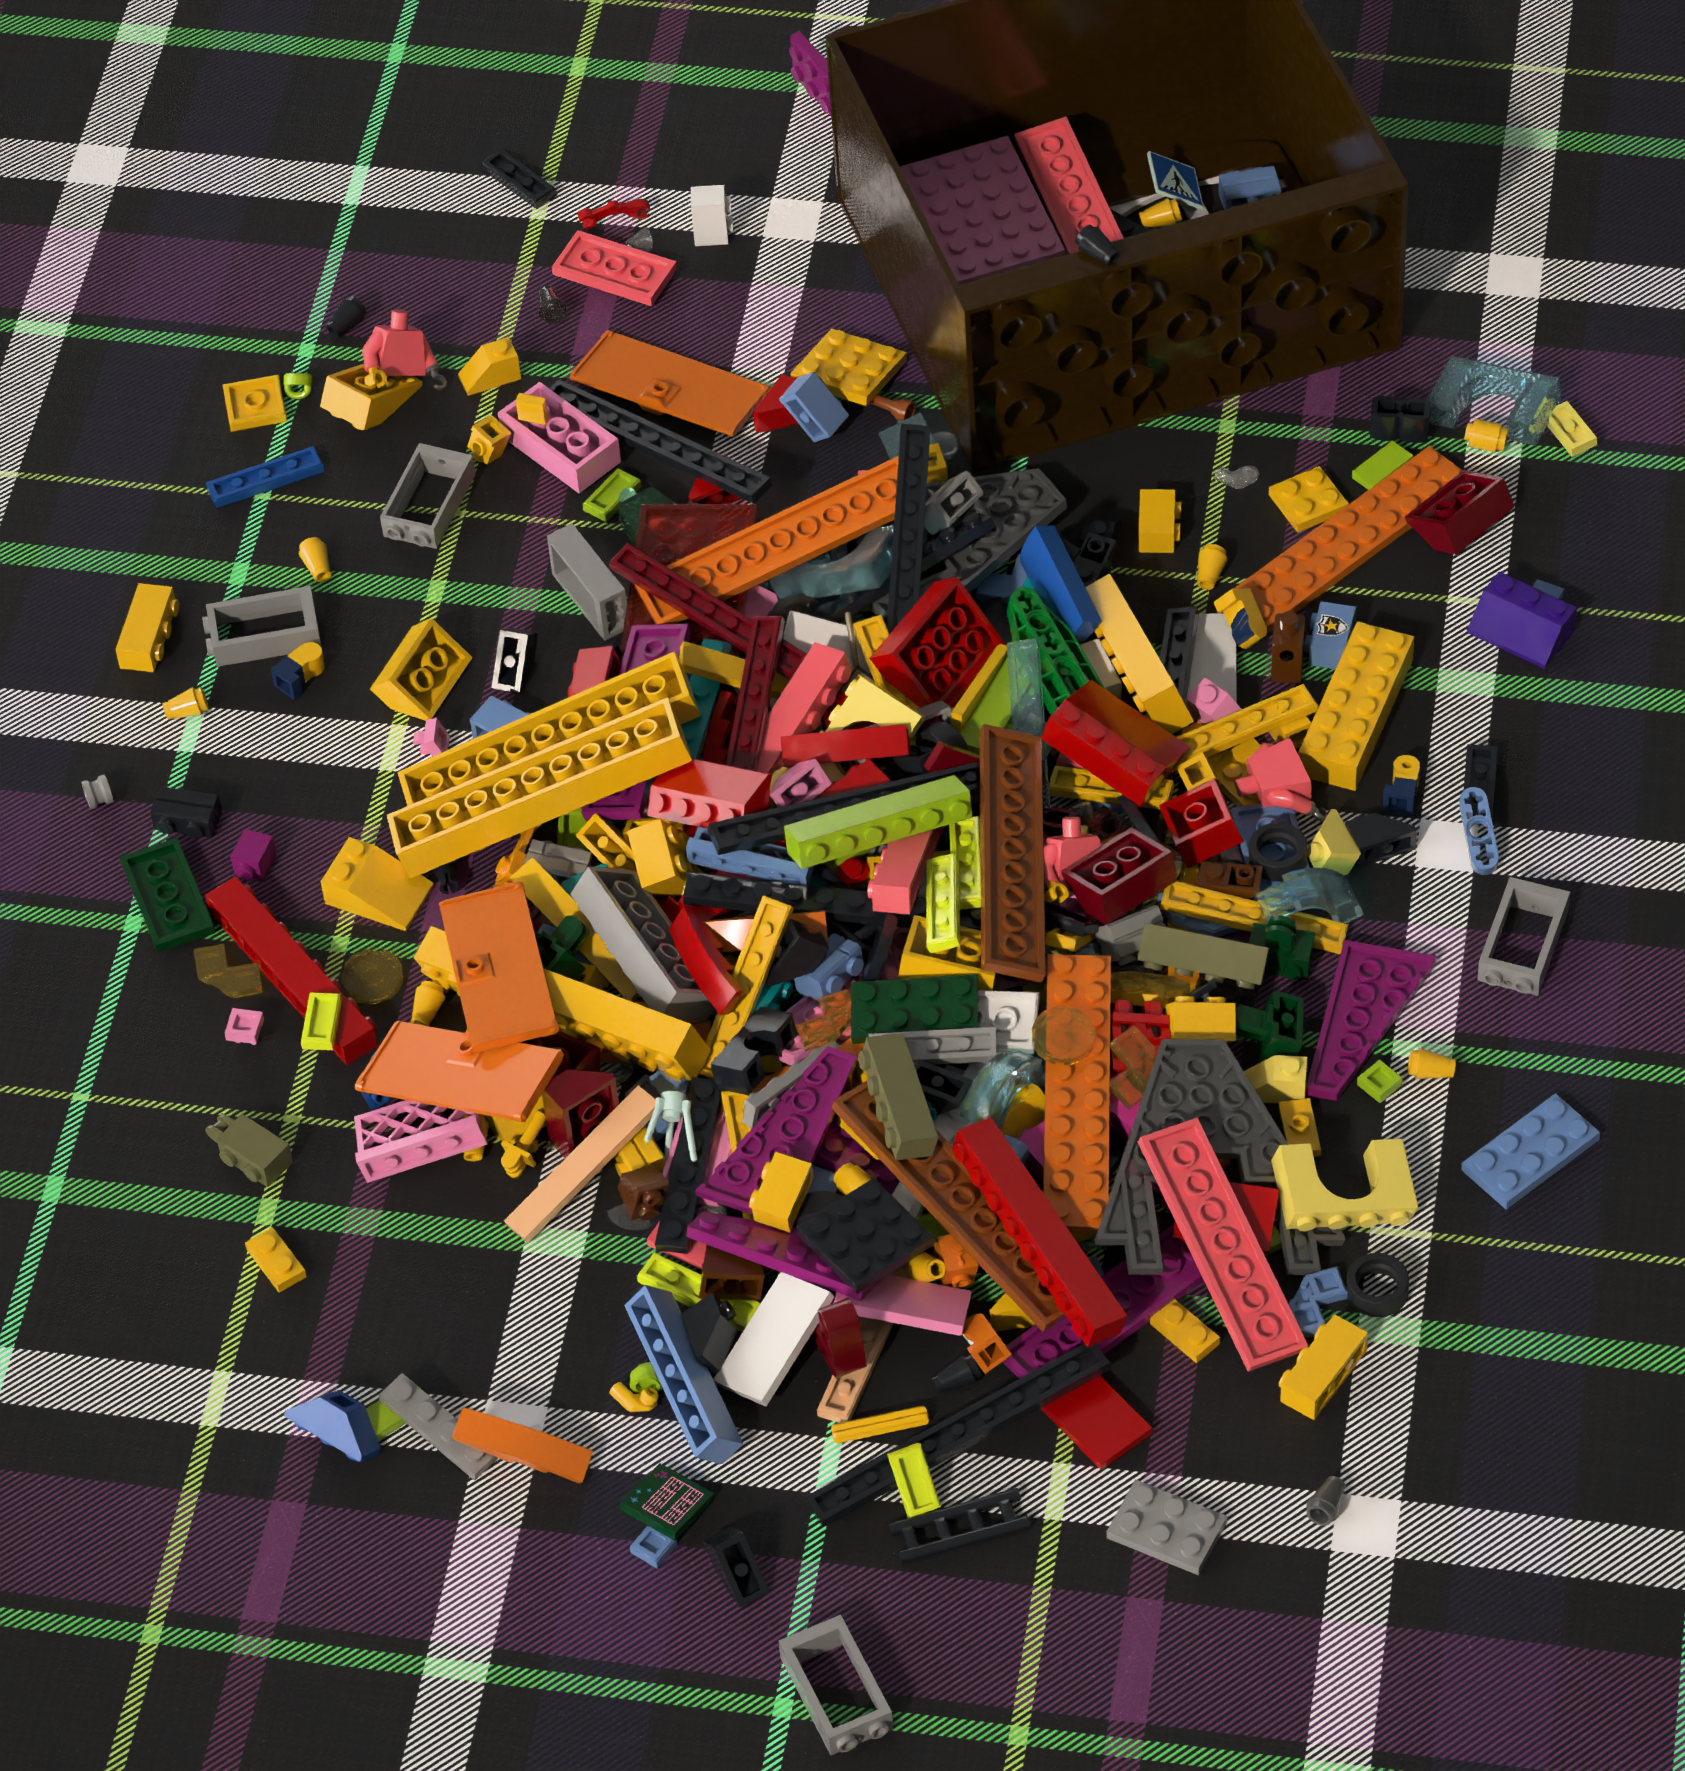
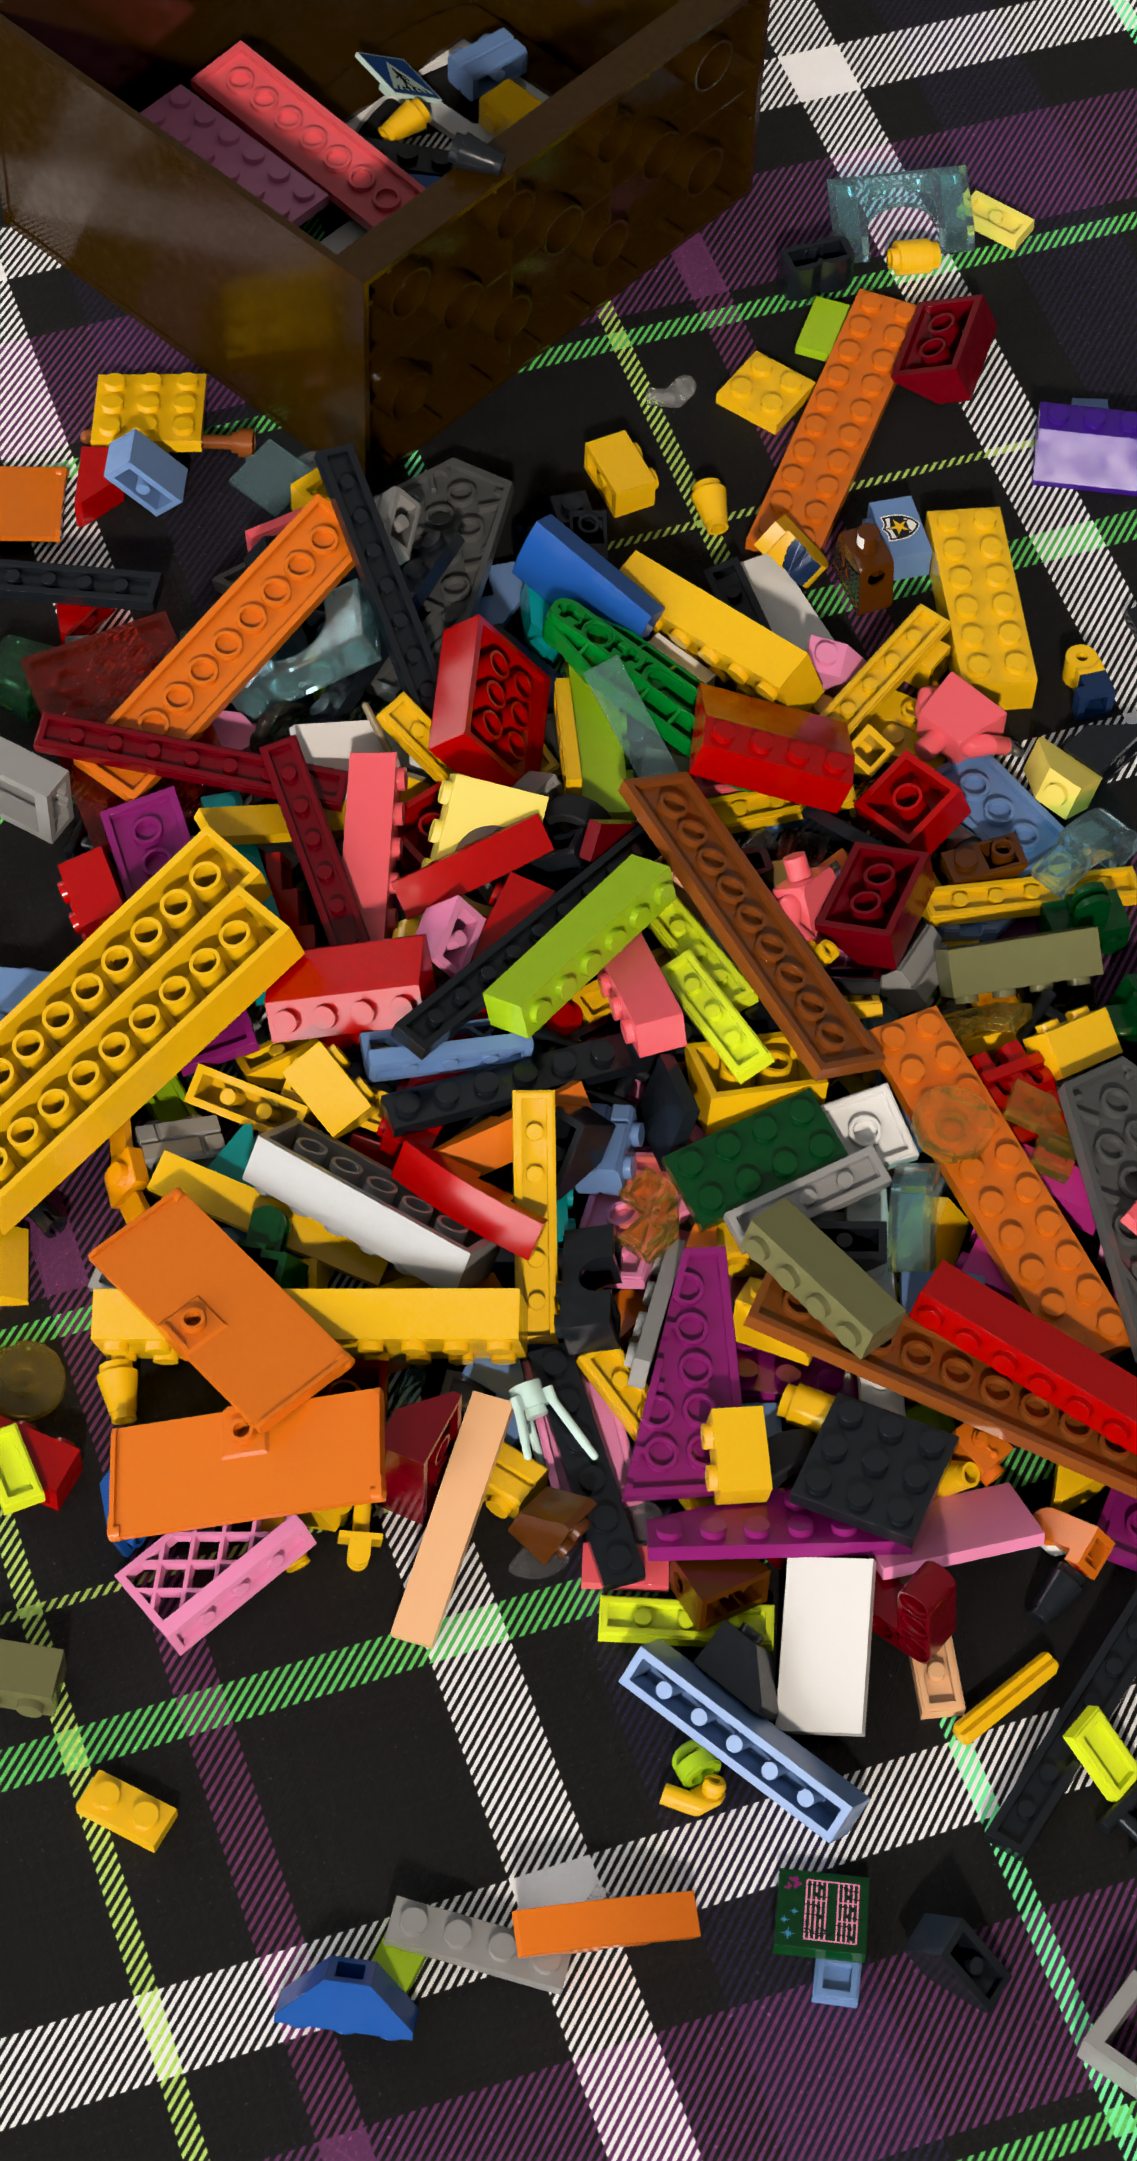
camera: 35 degrees left, 5 degrees up
(1278, 833) = (1020, 787): black tyre -> none

